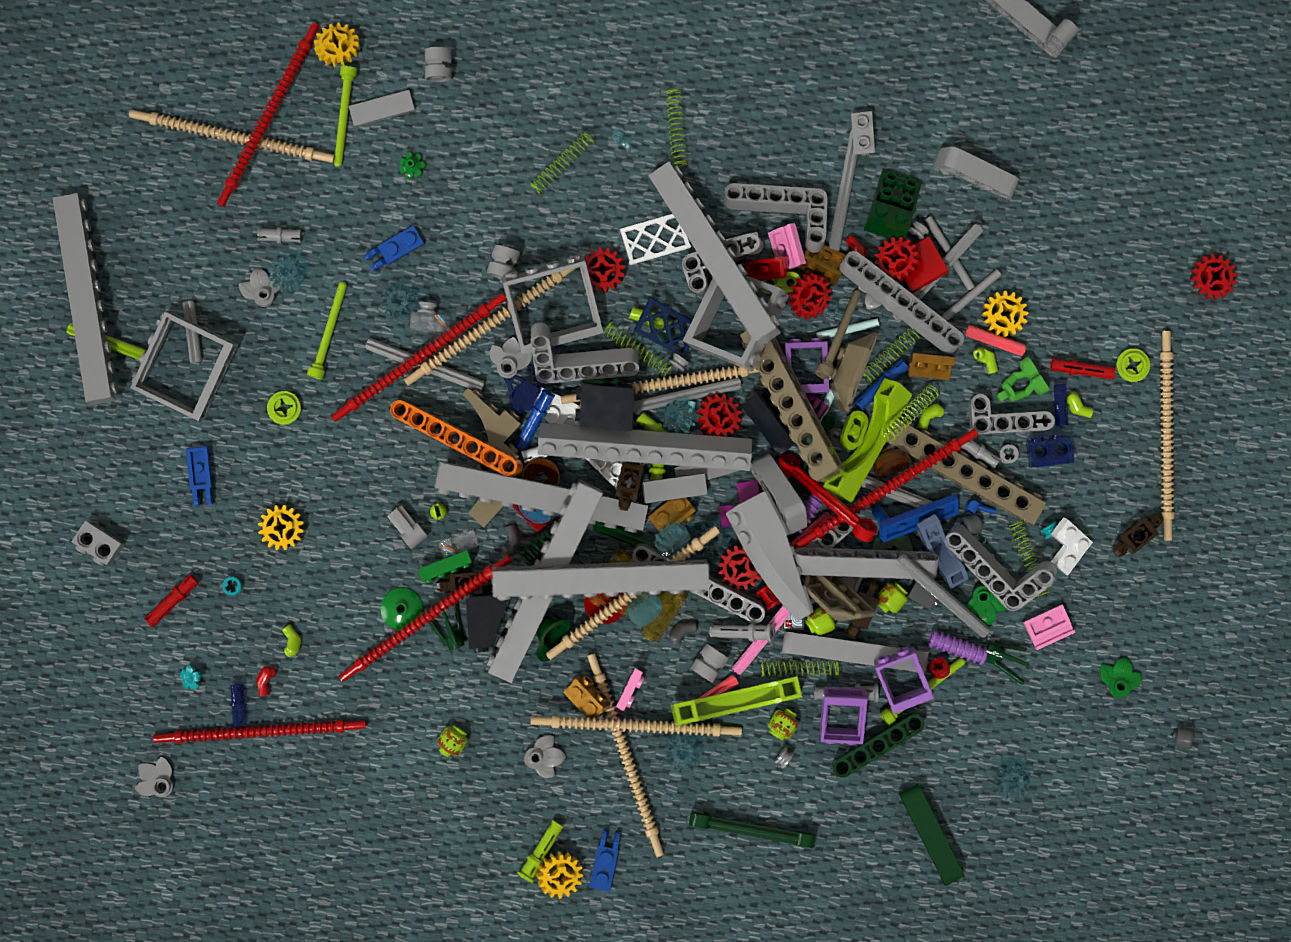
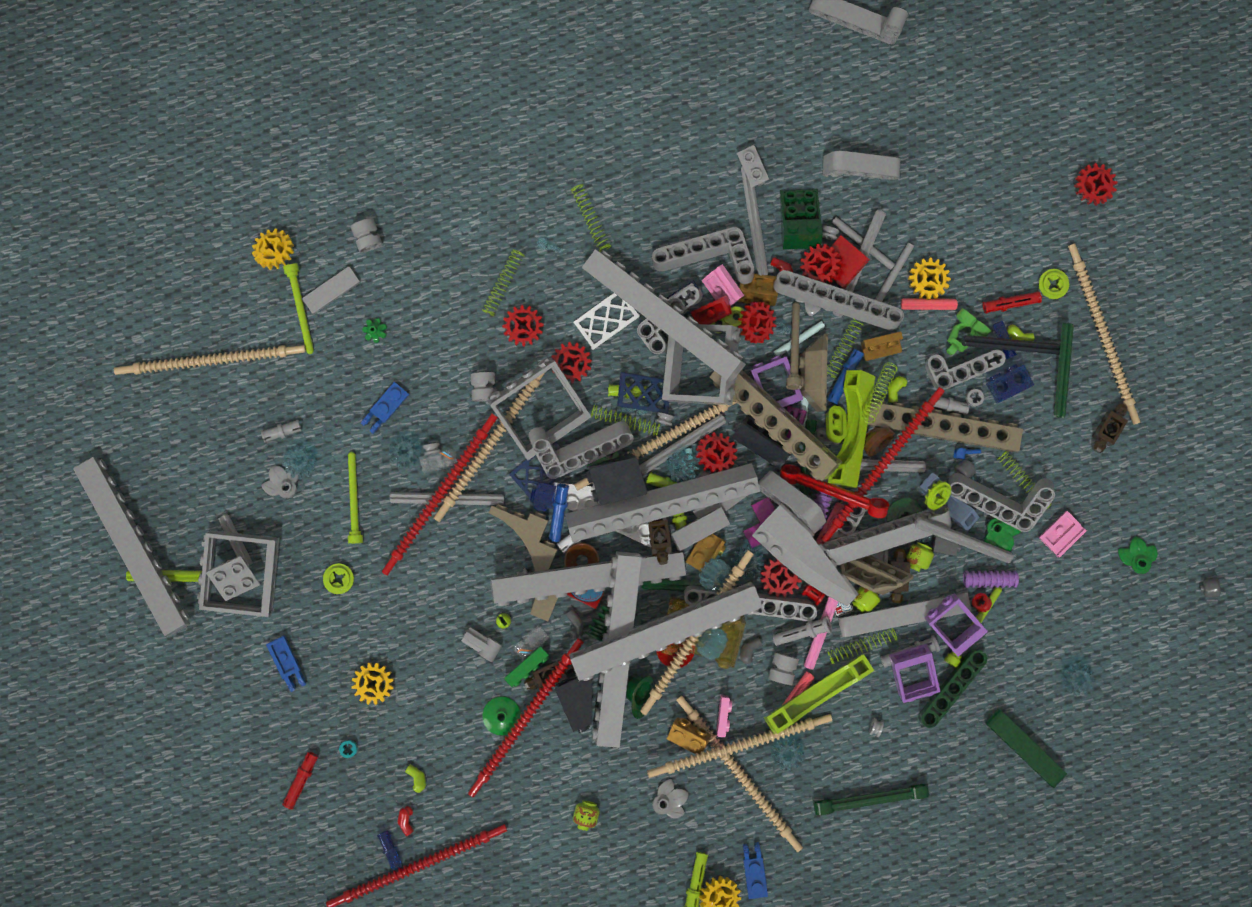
camera: 20 degrees left, 0 degrees up
(100, 539) = (219, 748): light grey brick -> none
(176, 367) = (233, 577): none -> light grey hinge
(190, 677) = (340, 841): teal plant -> none
(232, 182) = (224, 400): red hose -> none
(446, 437) = (488, 552): orange beam -> none
(453, 638) = (556, 726): dark green plant -> none
(509, 355) = (518, 464): light grey plate -> none
(558, 219) = (516, 332): none -> red gear
(783, 724) = (865, 698): lime head -> none
(907, 522) = (911, 486): blue piece -> none
(926, 545) = (935, 502): none -> lime gear
(987, 357) = (927, 321): lime arm -> none
(996, 652) = (1026, 572): dark green plant -> none
(1049, 529) = (1034, 450): teal bush -> none
(1069, 414) = (1011, 344): none -> black axle
(1073, 548) = (1059, 458): white plate -> none
(1111, 458) = (1064, 370): none -> dark green axle

